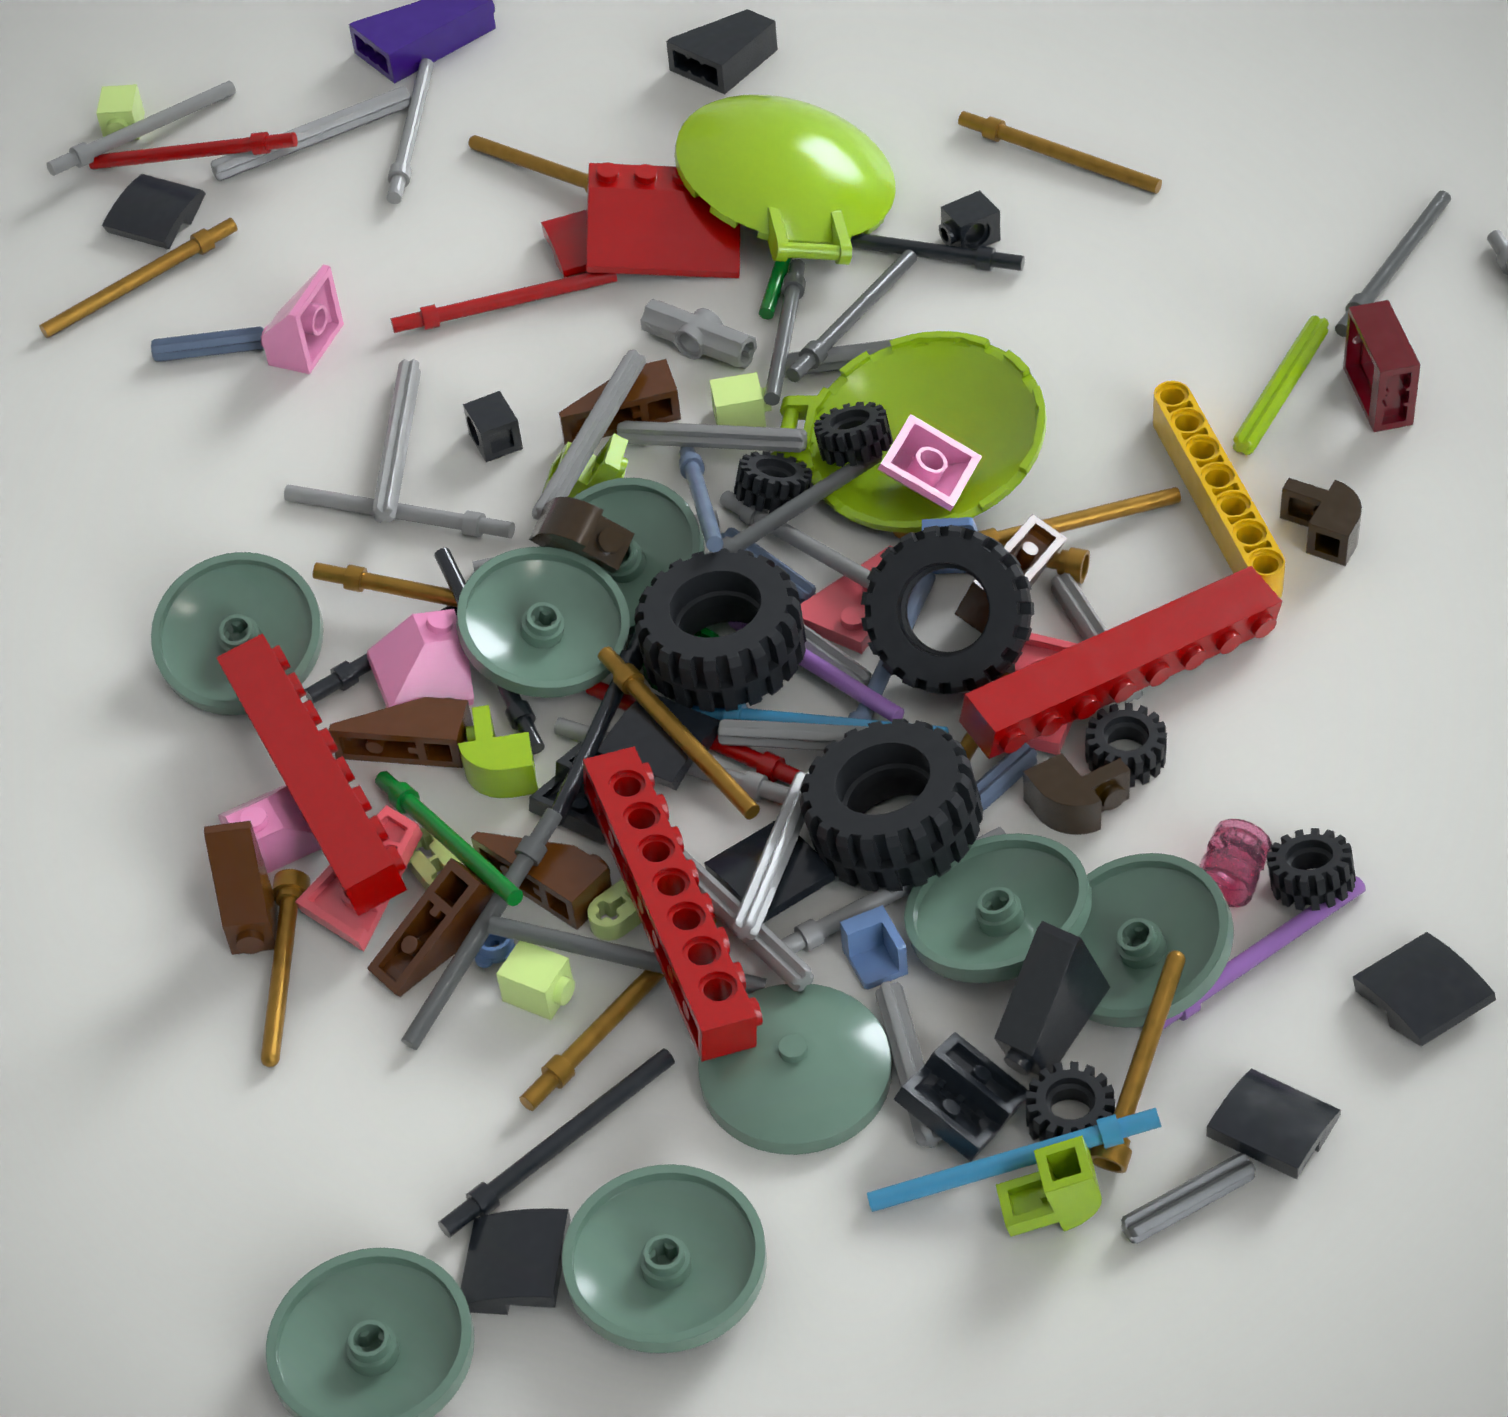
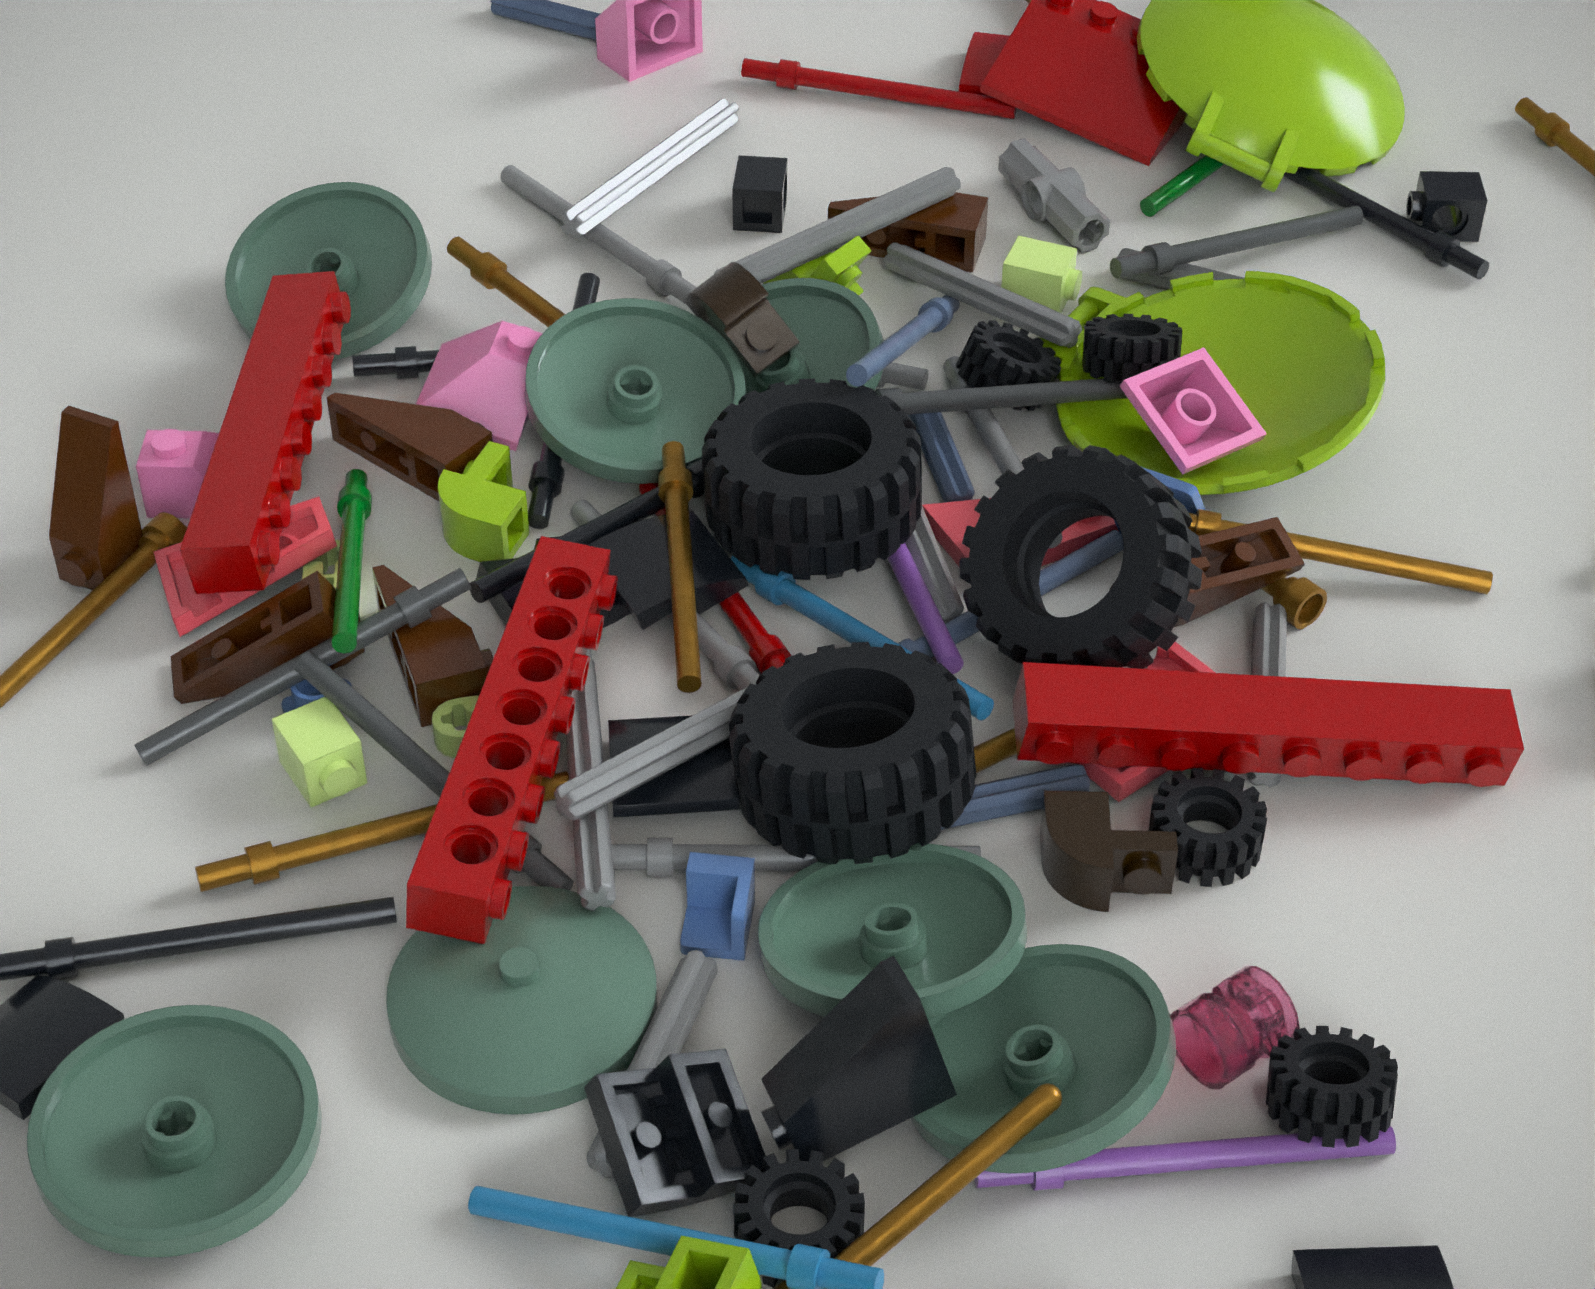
camera: 25 degrees right, 5 degrees down
(781, 734) = (789, 615): light grey axle -> none
(792, 290) = (1192, 195): dark grey bar -> none
(1215, 485) = (1541, 595): yellow beam -> none

